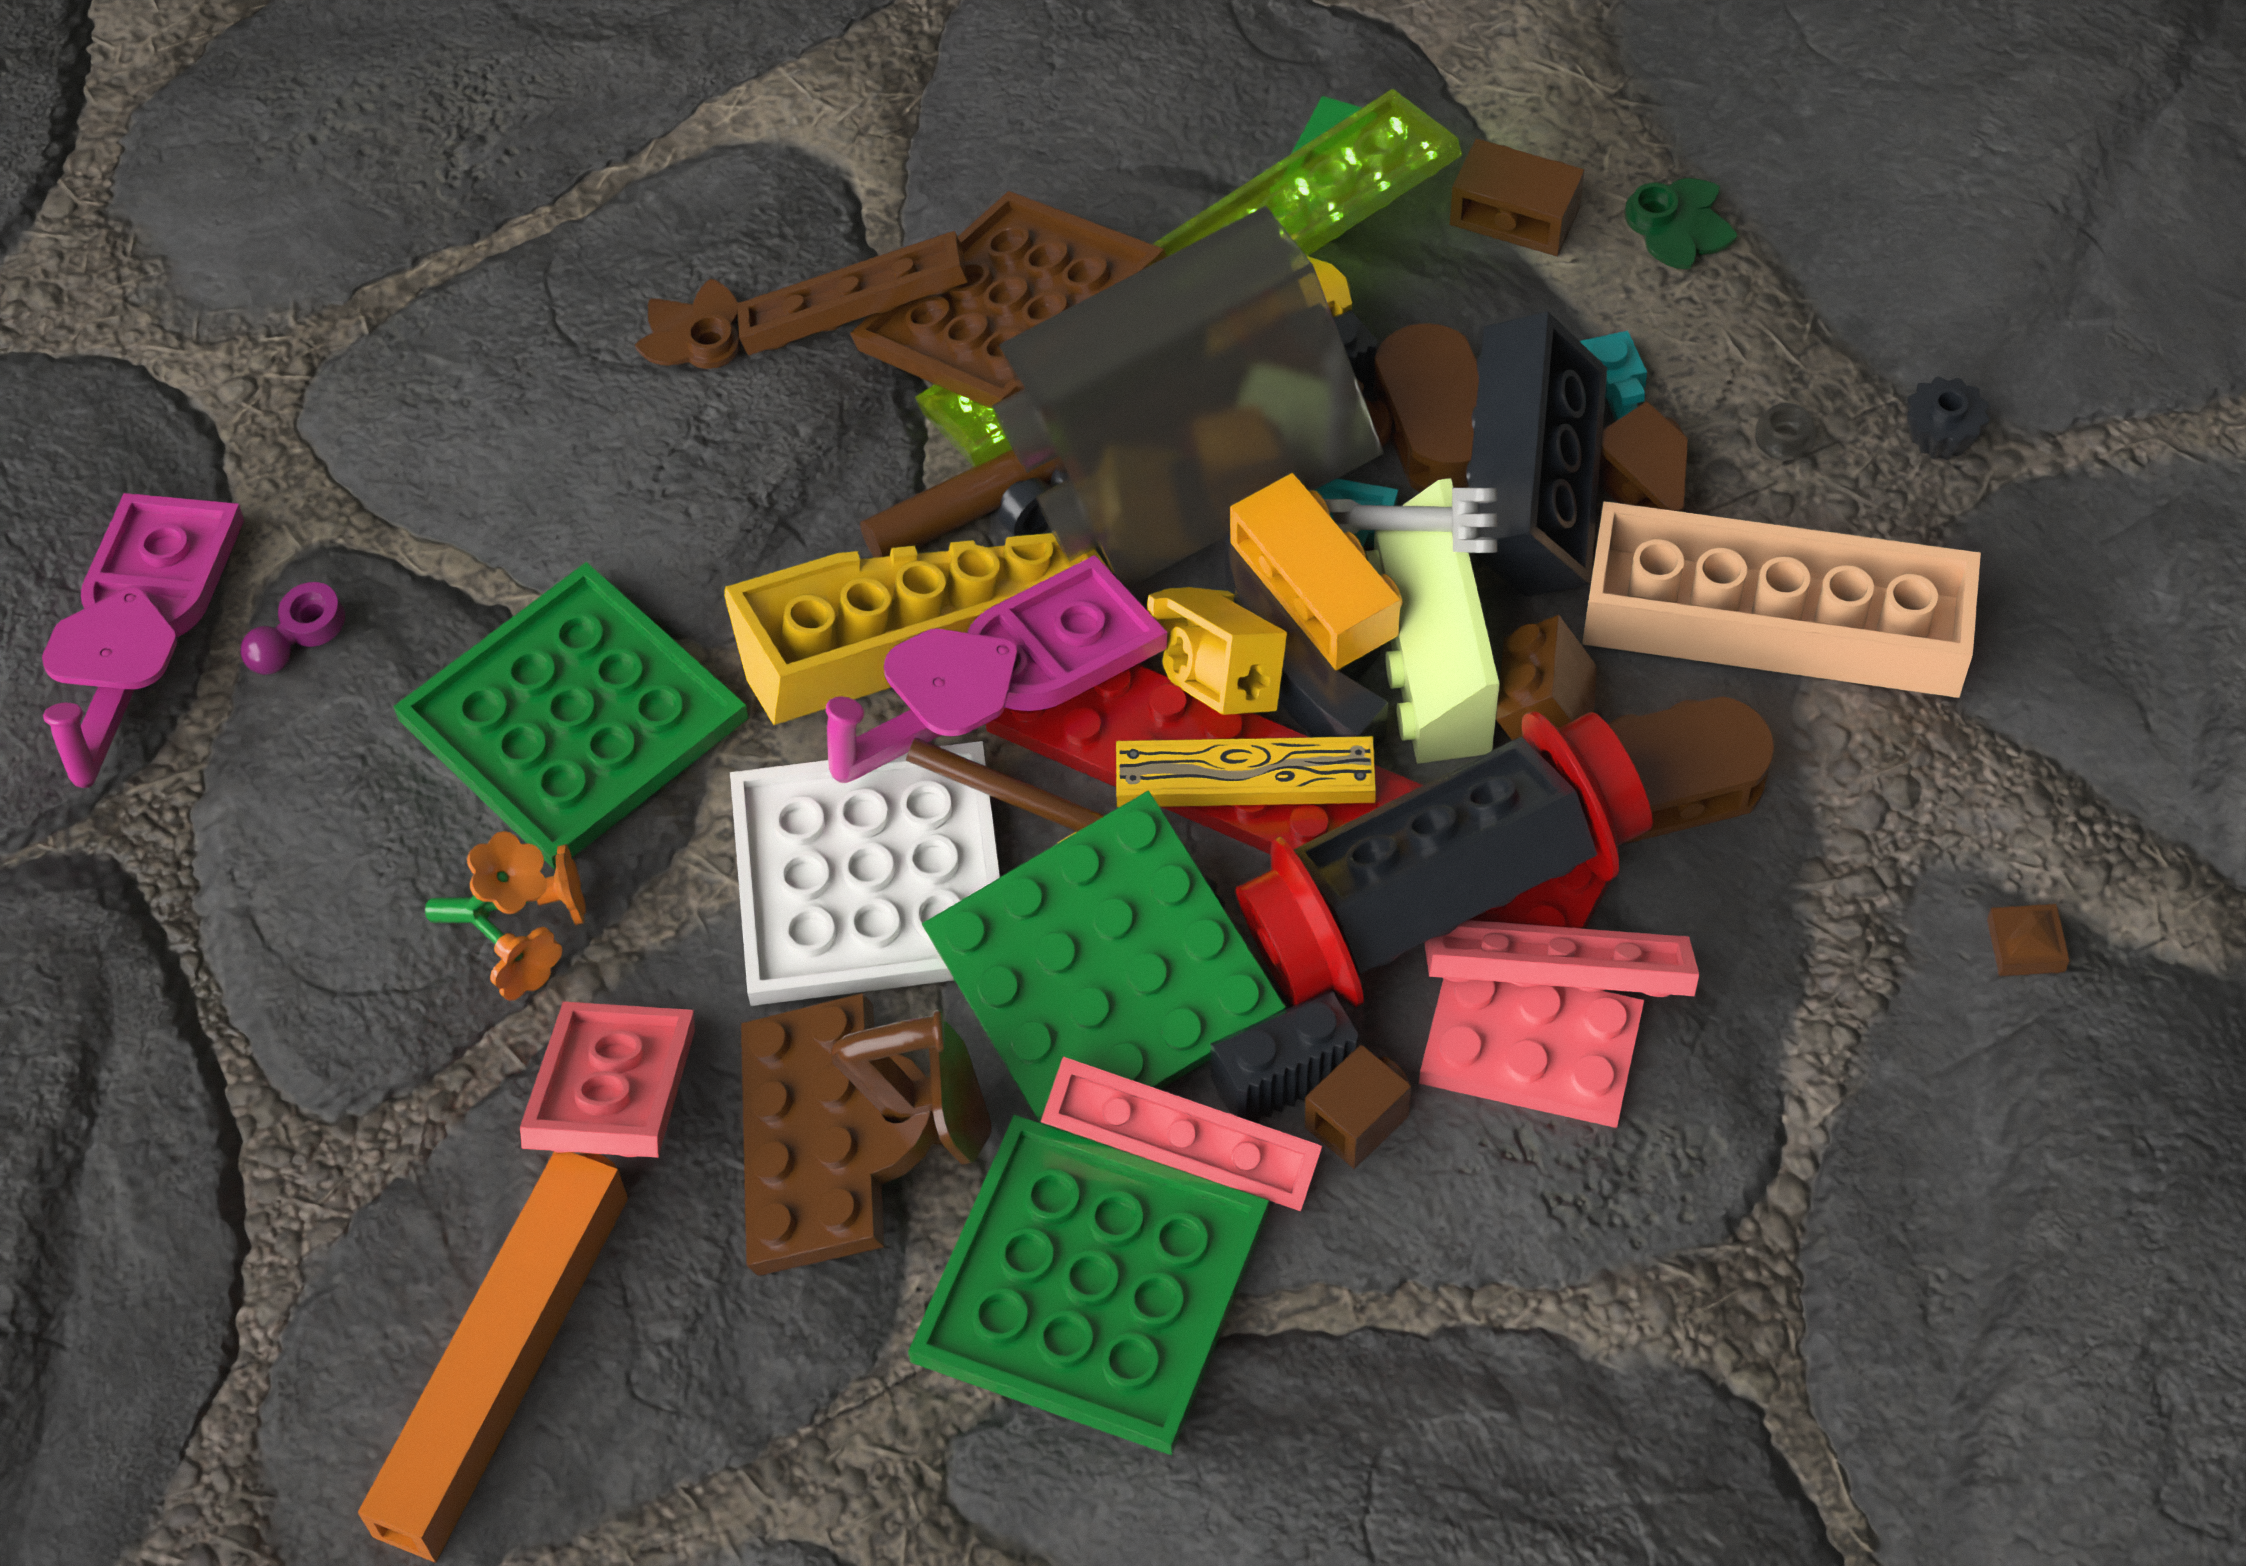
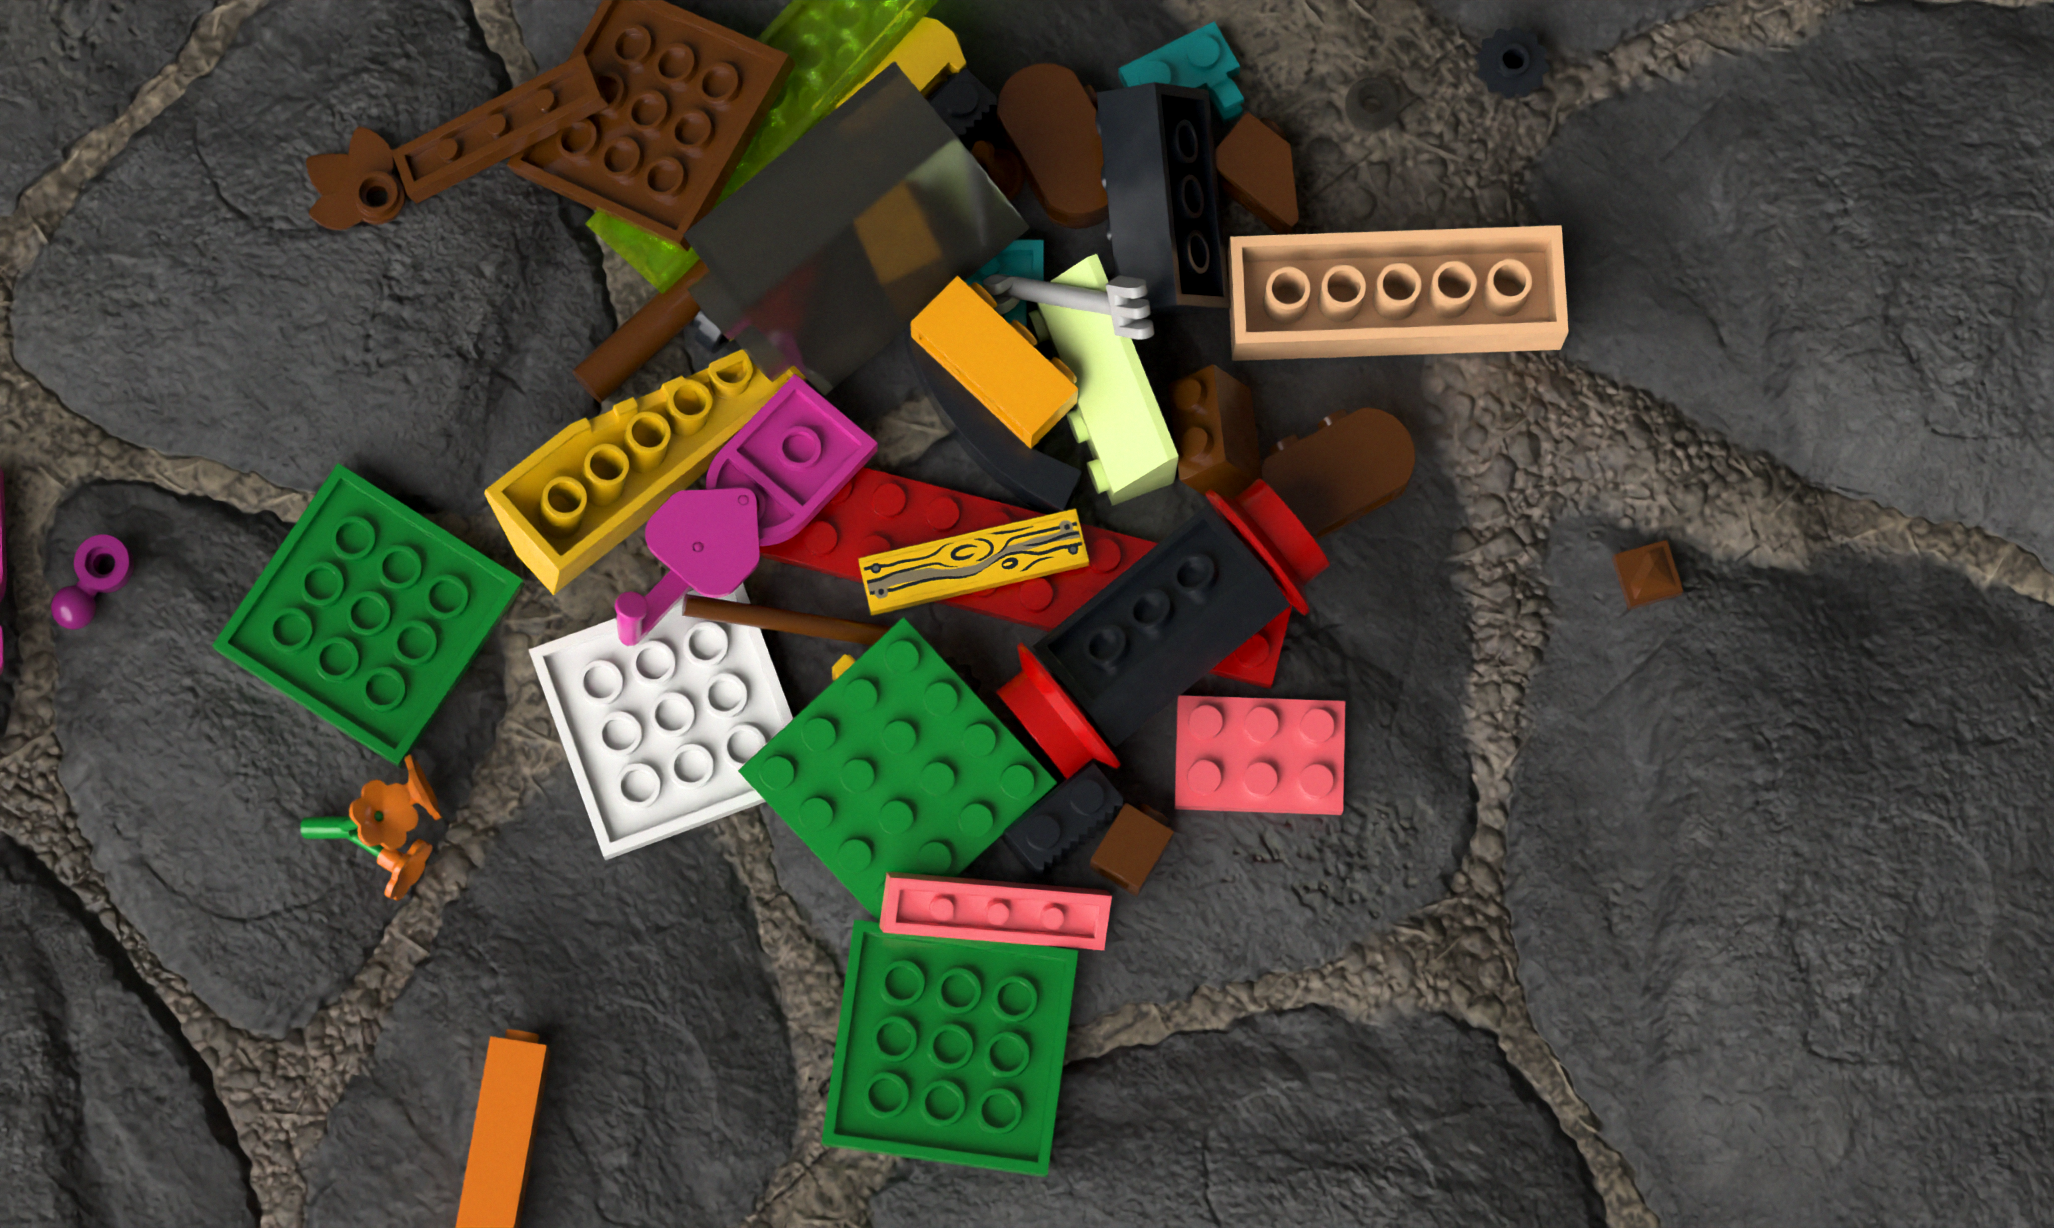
camera: 20 degrees left, 20 degrees up
(608, 1080) = (513, 964): coral plate -> none
(837, 1118) = (702, 963): reddish brown plate -> none
(1219, 649) = (924, 446): yellow piece -> none
(1565, 958) = (1280, 684): coral plate -> none

